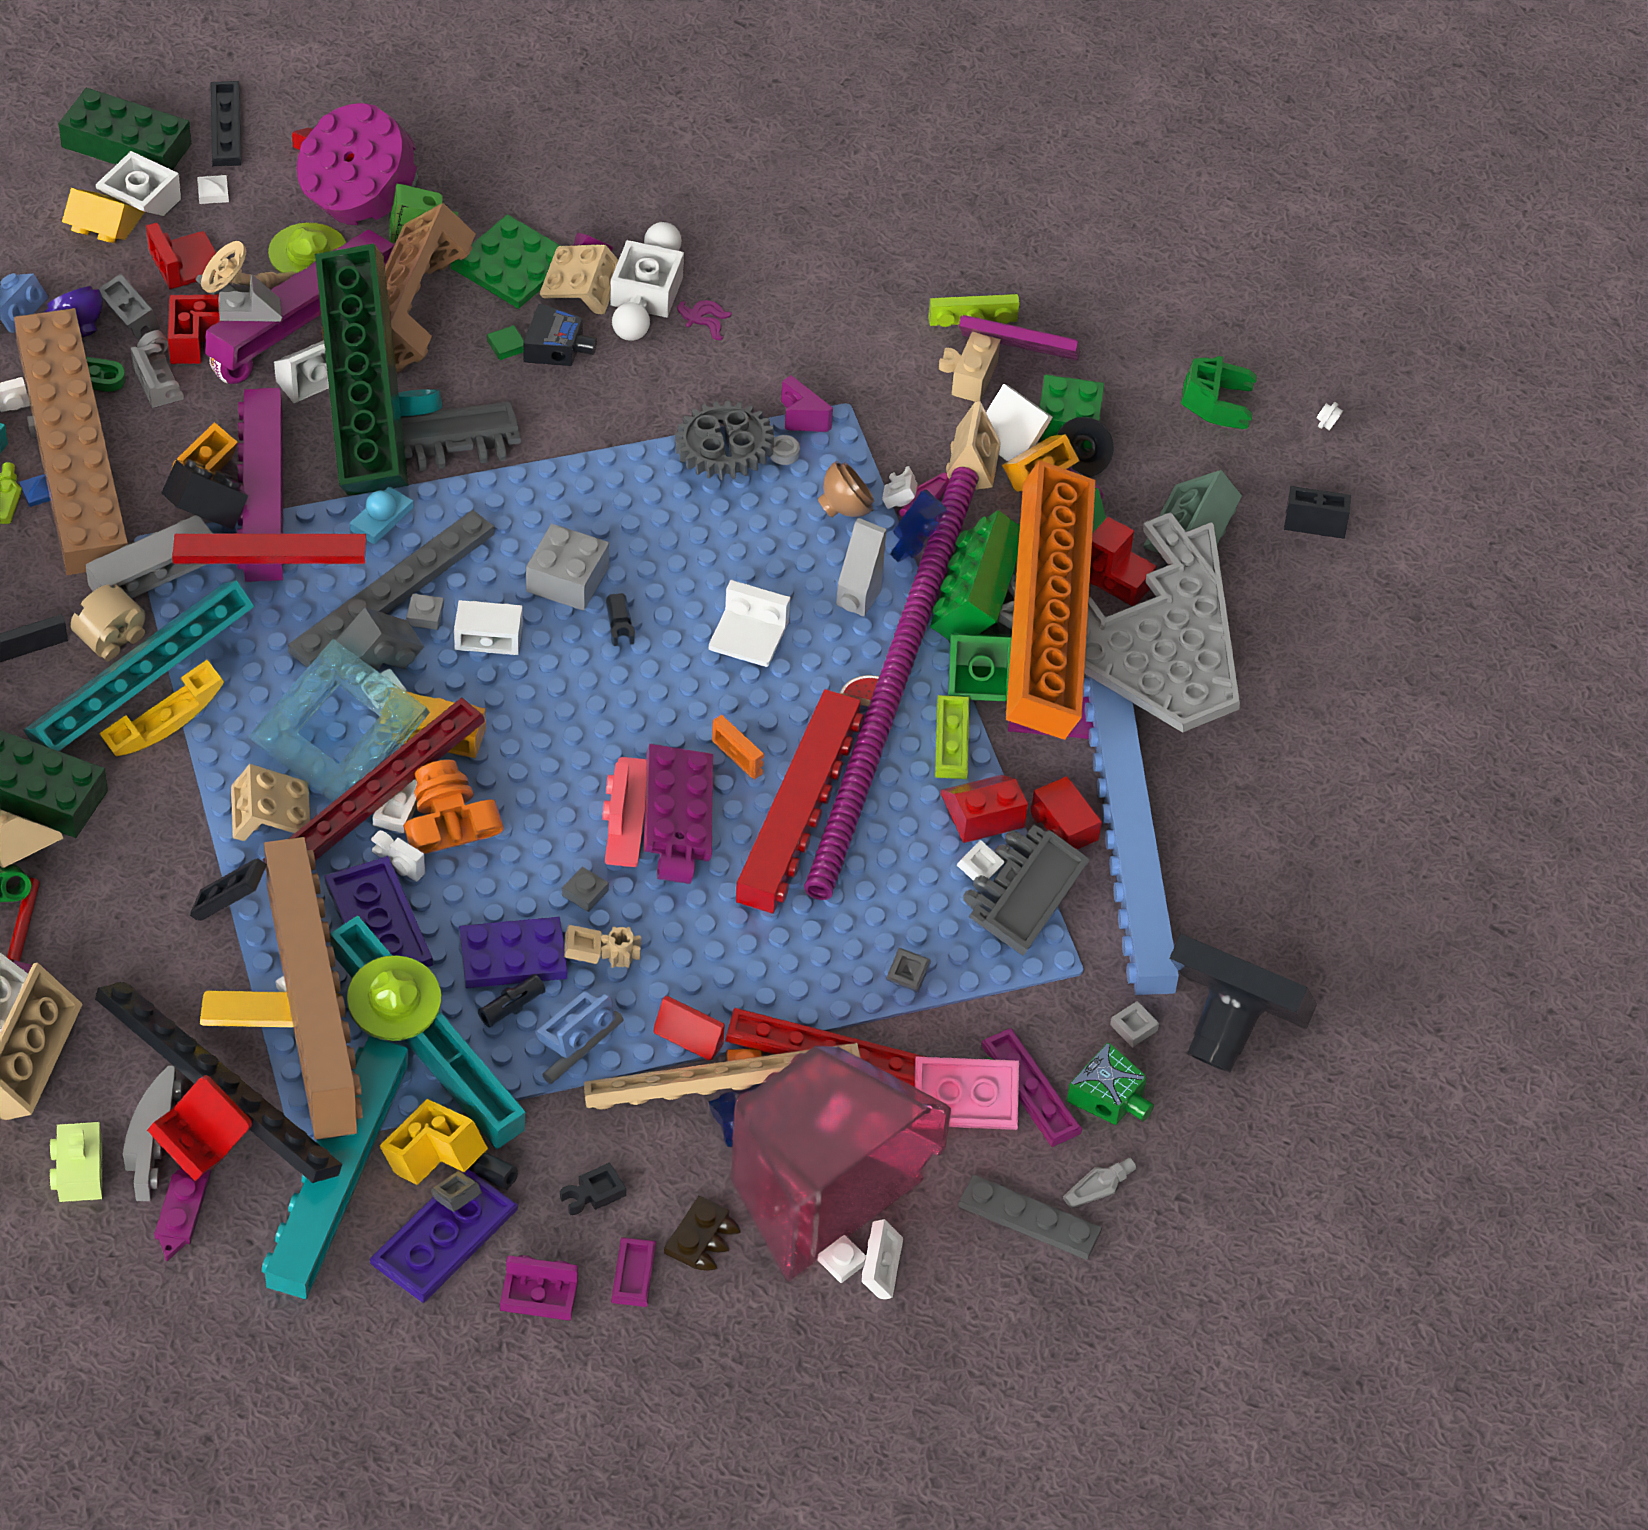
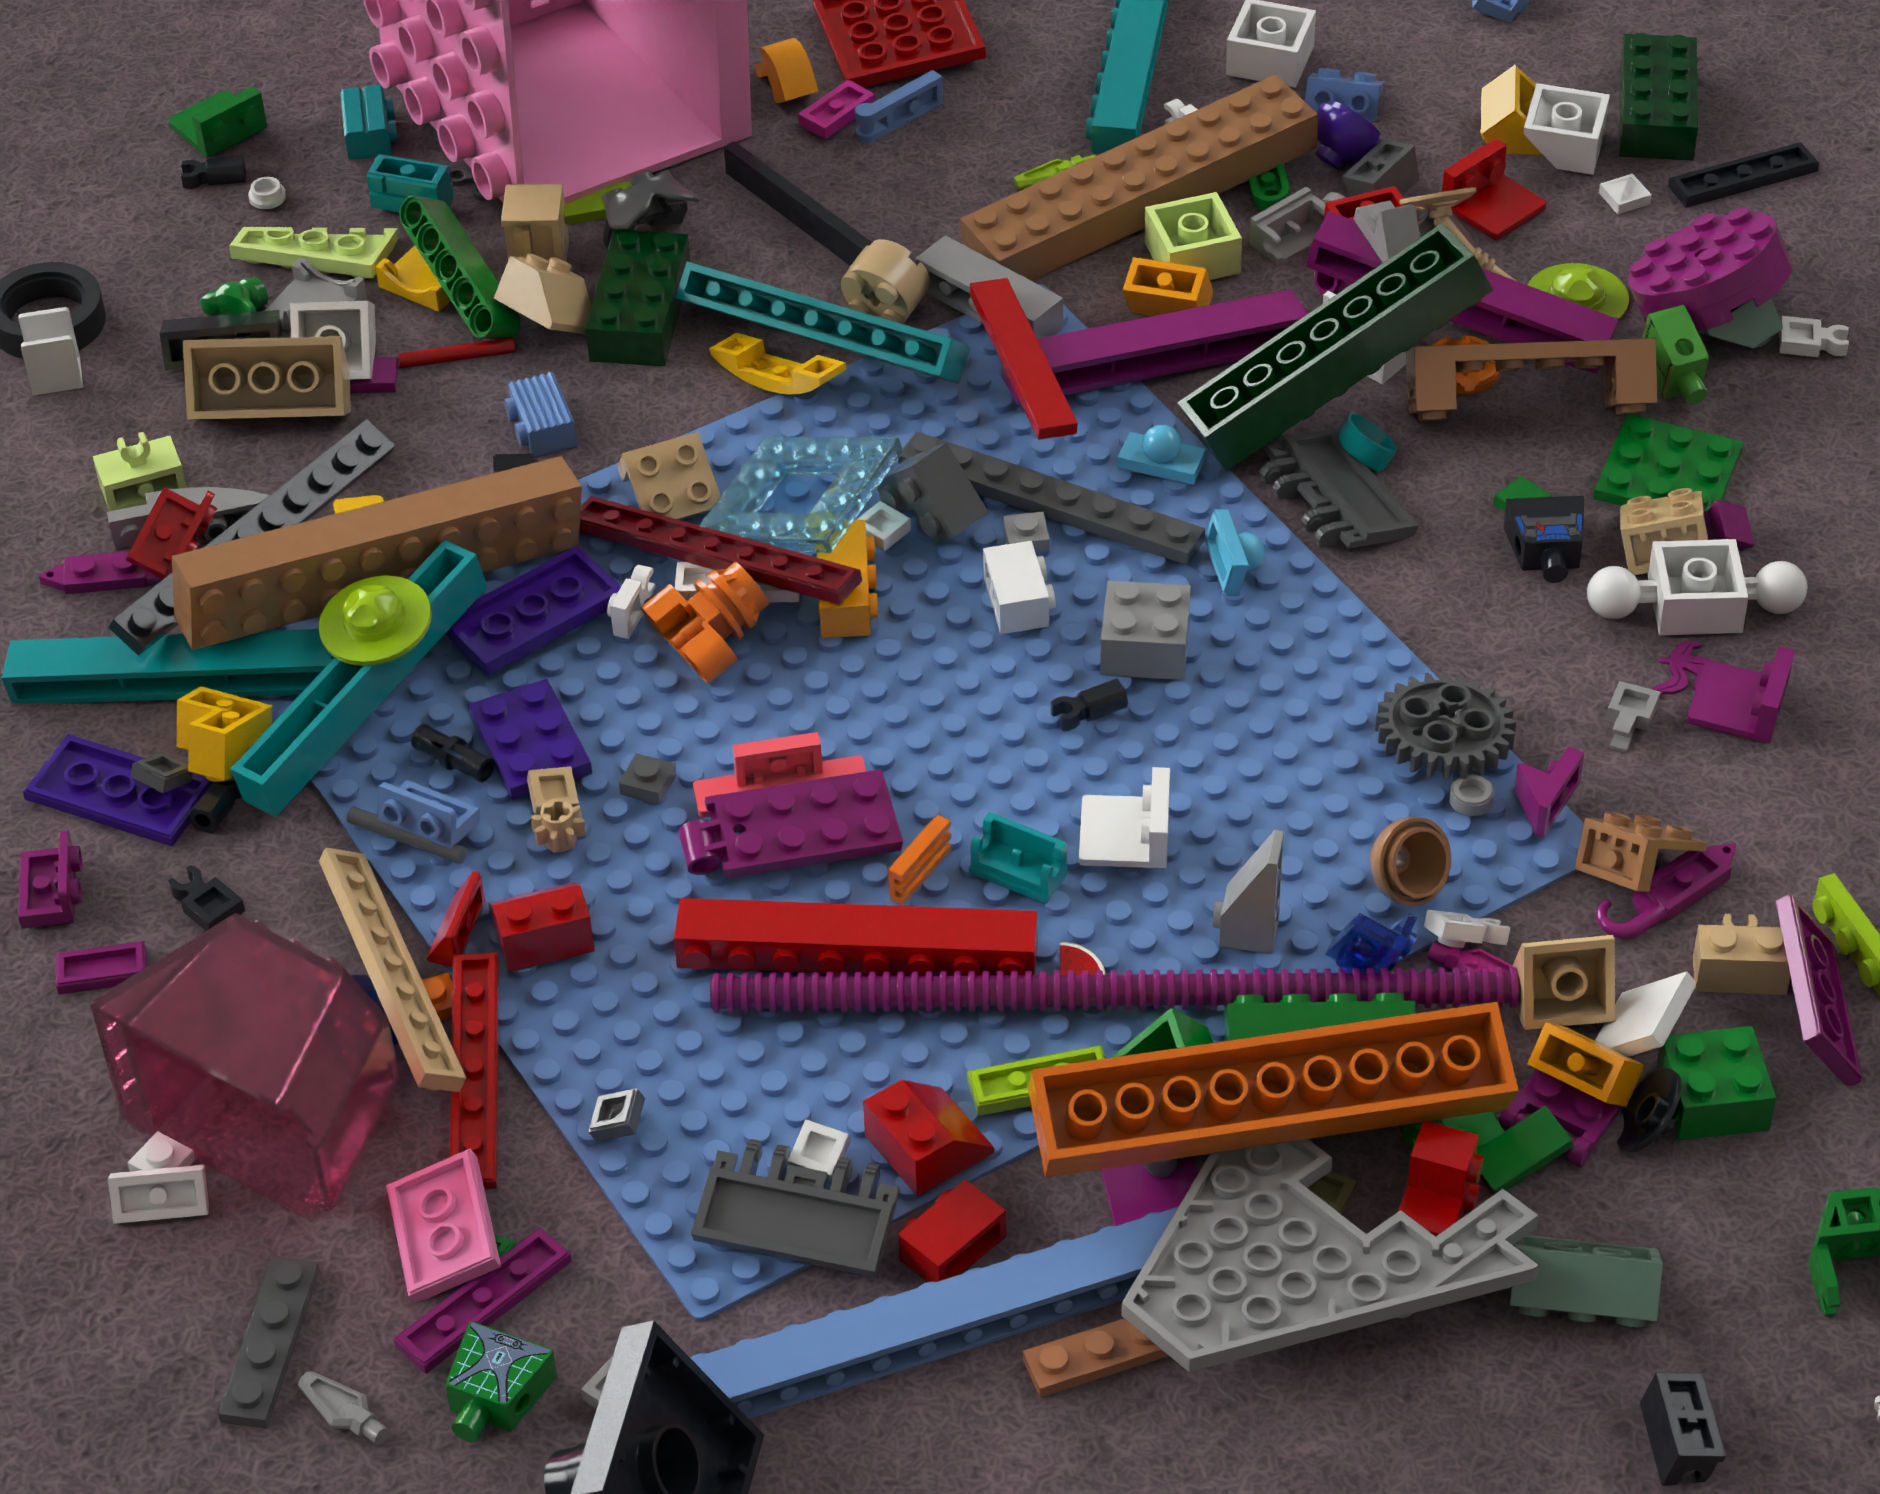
camera: 80 degrees right, 5 degrees down
(141, 875) = (541, 415): none -> medium blue brick
(150, 429) = (1195, 234): none -> yellowish green brick
(205, 493) = (1091, 288): black brick -> none
(425, 146) = (1807, 337): none -> white plate
(506, 501) = (1232, 552): none -> medium azure tile
(709, 974) = (542, 926): none -> red slope
(735, 350) = (1630, 709): none -> light grey plate
(752, 290) = (1742, 699): none -> magenta bracket
(756, 694) = (1019, 858): none -> teal hinge
(869, 385) = (1628, 849): none -> medium nougat bracket
(899, 382) = (1673, 890): none -> magenta plate
(1174, 769) = (1088, 1356): none -> nougat plate

